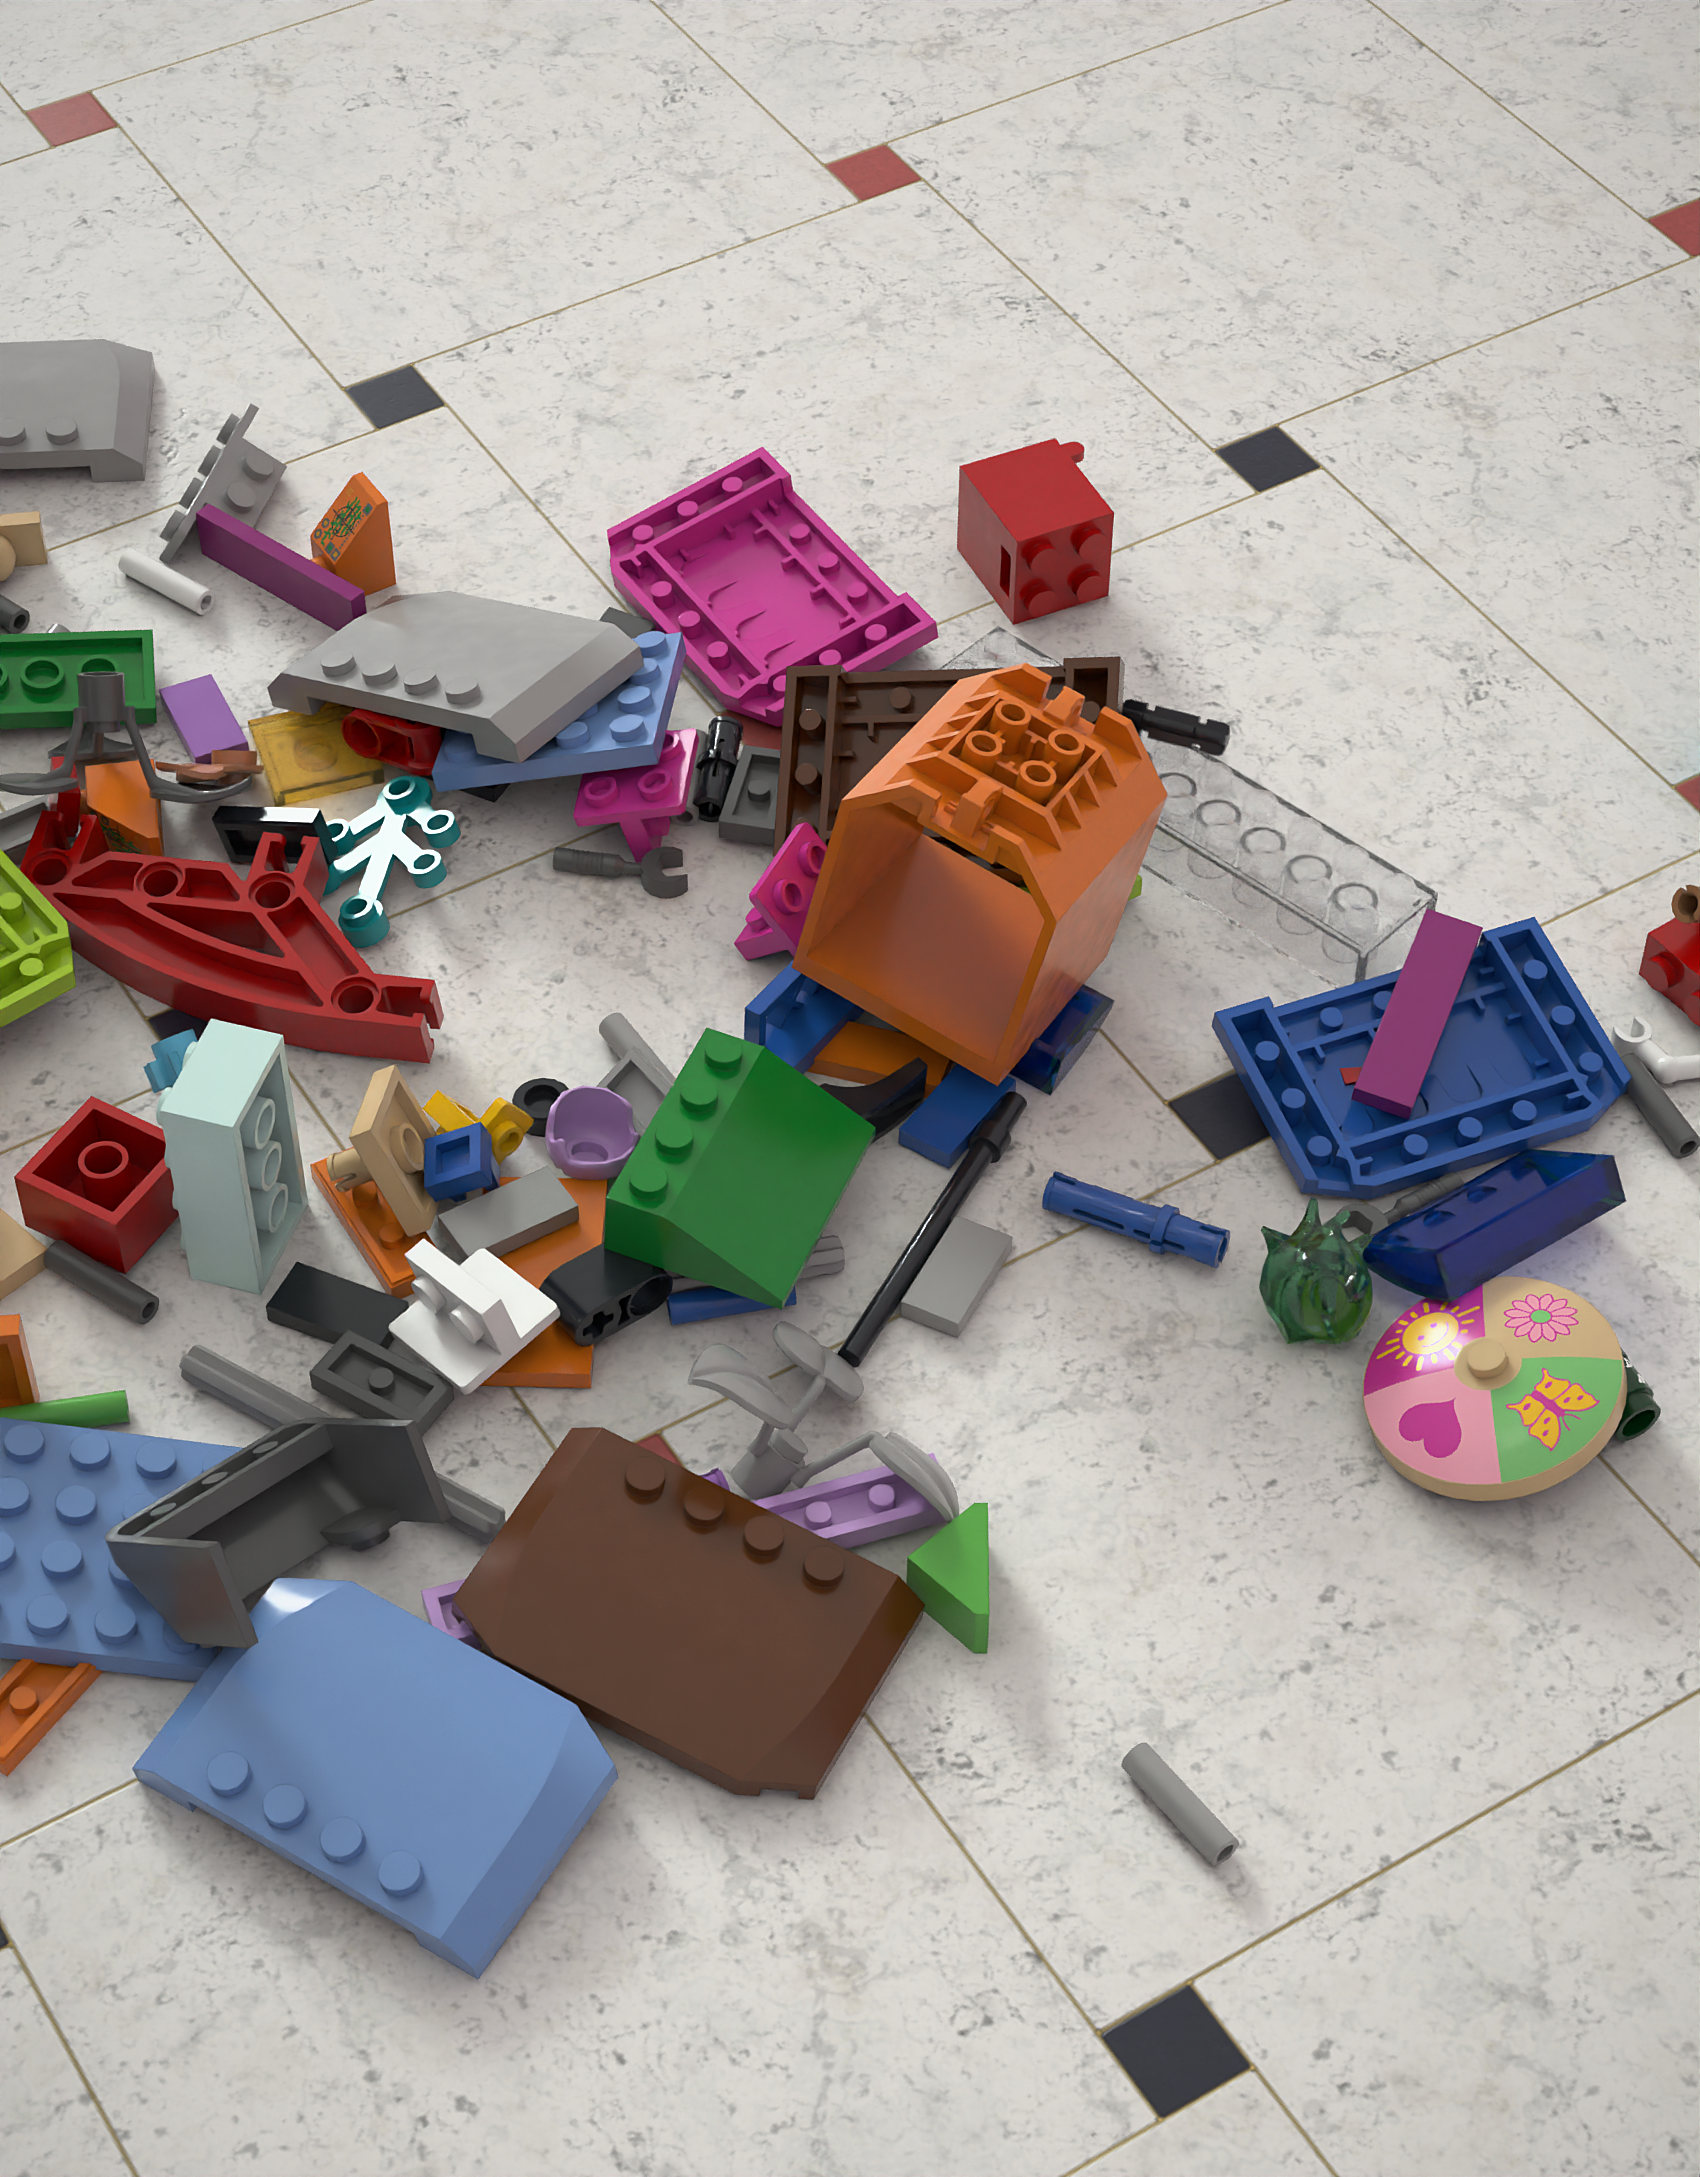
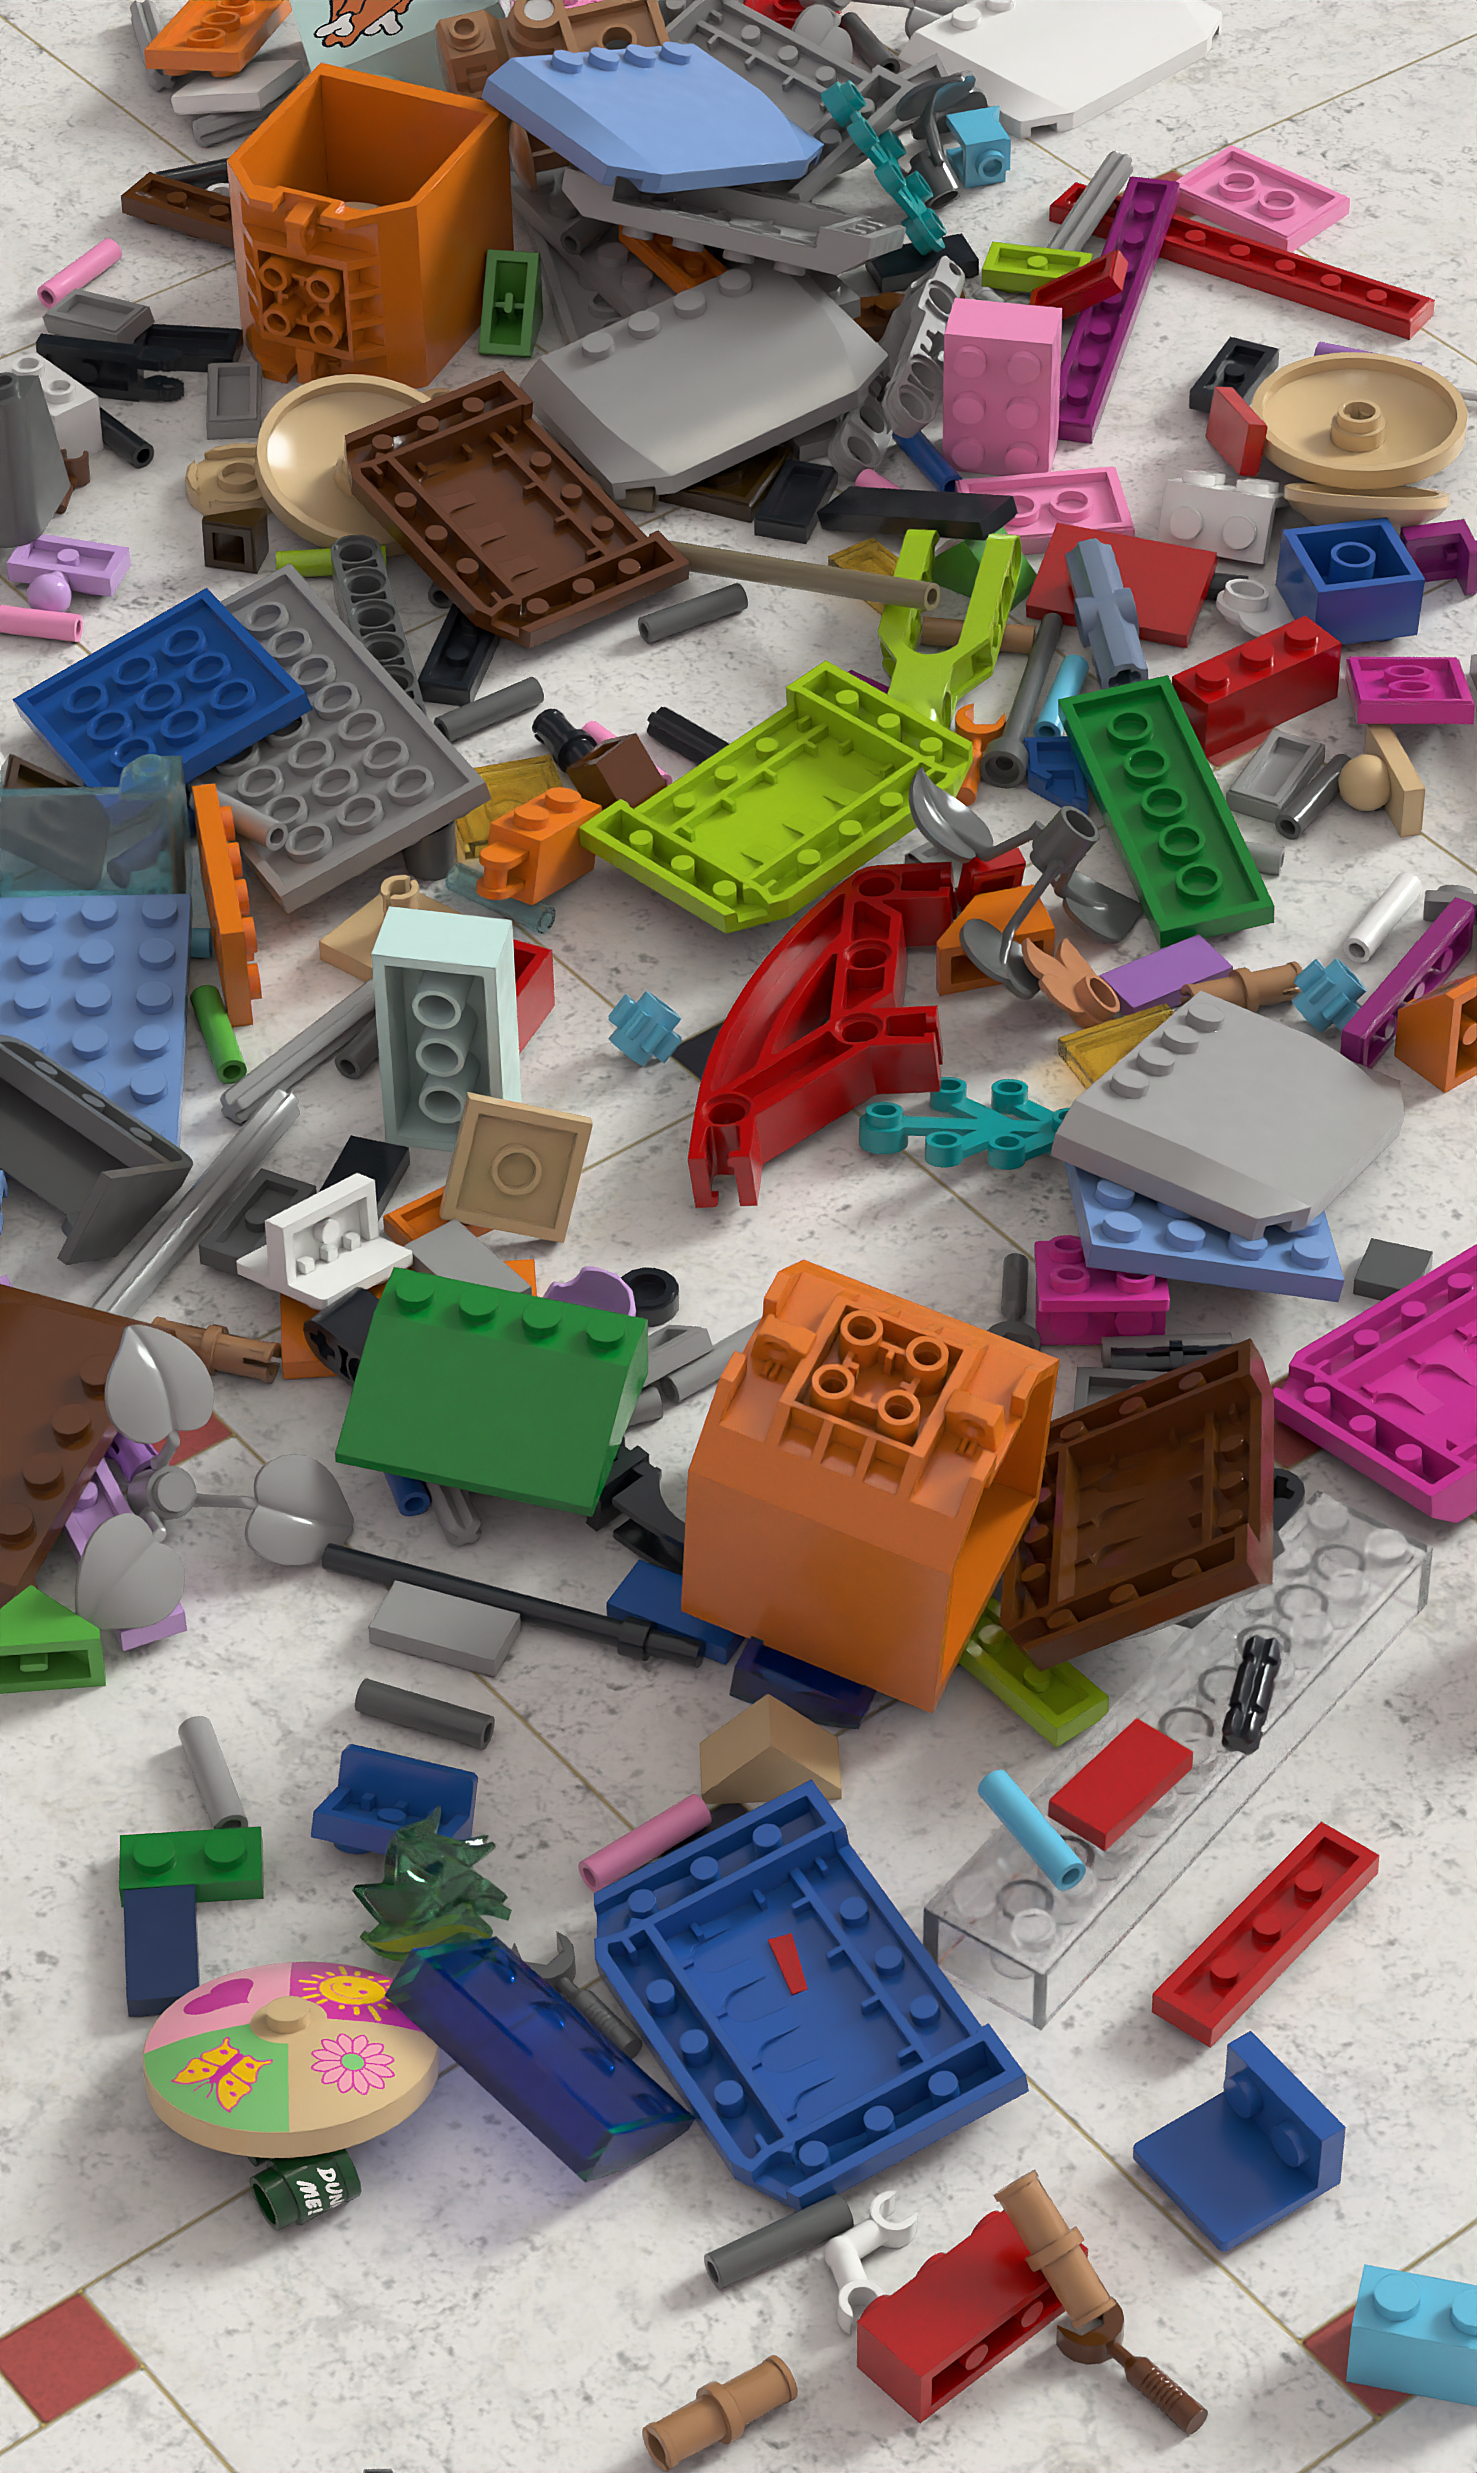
camera: 85 degrees right, 5 degrees down
(111, 1339) = (300, 1054): none -> light grey axle
(243, 827) = (973, 1037): black tile -> none
(246, 672) = (1250, 988): none -> medium nougat pin
(280, 615) = (1328, 994): none -> medium azure gear
(460, 1163) = (516, 1220): blue tile -> none
(502, 1120) = (589, 1233): yellow bracket -> none
(552, 1425) = (227, 1351): none -> medium nougat pin
(1062, 1295) = (424, 1713): none -> dark grey piece
(1127, 1452) = (211, 1773): none -> light grey piece
(1146, 1074) = (766, 1755): none -> tan slope
(1158, 1227) = (520, 1781): blue pin -> none
(1197, 1310) = (388, 1791): none -> blue bracket
(1230, 1155) = (645, 1843): none -> bright pink piece
(1234, 1474) = (217, 1861): none -> green plate
(1263, 812) = (1120, 1784): none -> red tile
(1310, 867) = (1031, 1830): none -> medium azure piece
(1336, 1497) = (160, 1947): none -> dark blue tile
(1357, 793) = (1265, 1934): none -> red plate
(1417, 1014) = (860, 1978): magenta tile -> none
(1569, 826) = (1248, 2150): none -> blue bracket

